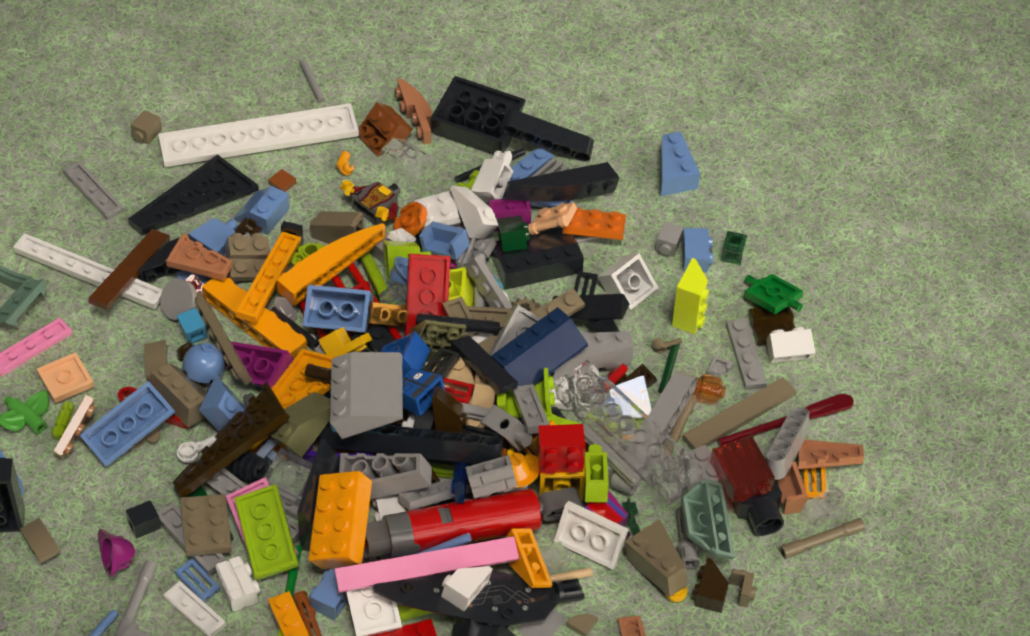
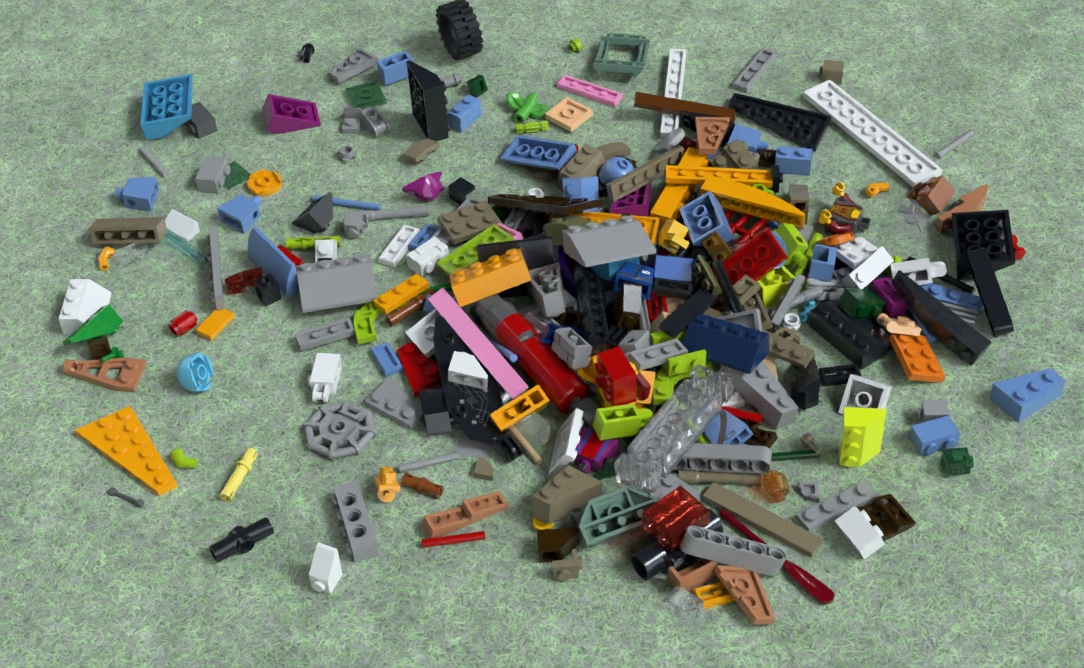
camera: 75 degrees right, 5 degrees down
(75, 427) = (531, 127): wing -> none
(192, 326) = (649, 153): dark azure panel -> none
(282, 180) = (833, 161): dark orange tile -> none
(401, 235) = (810, 237): white tile -> none
(773, 293) = (916, 504): green plate -> none
(845, 529) = (669, 629): dark tan piece -> none

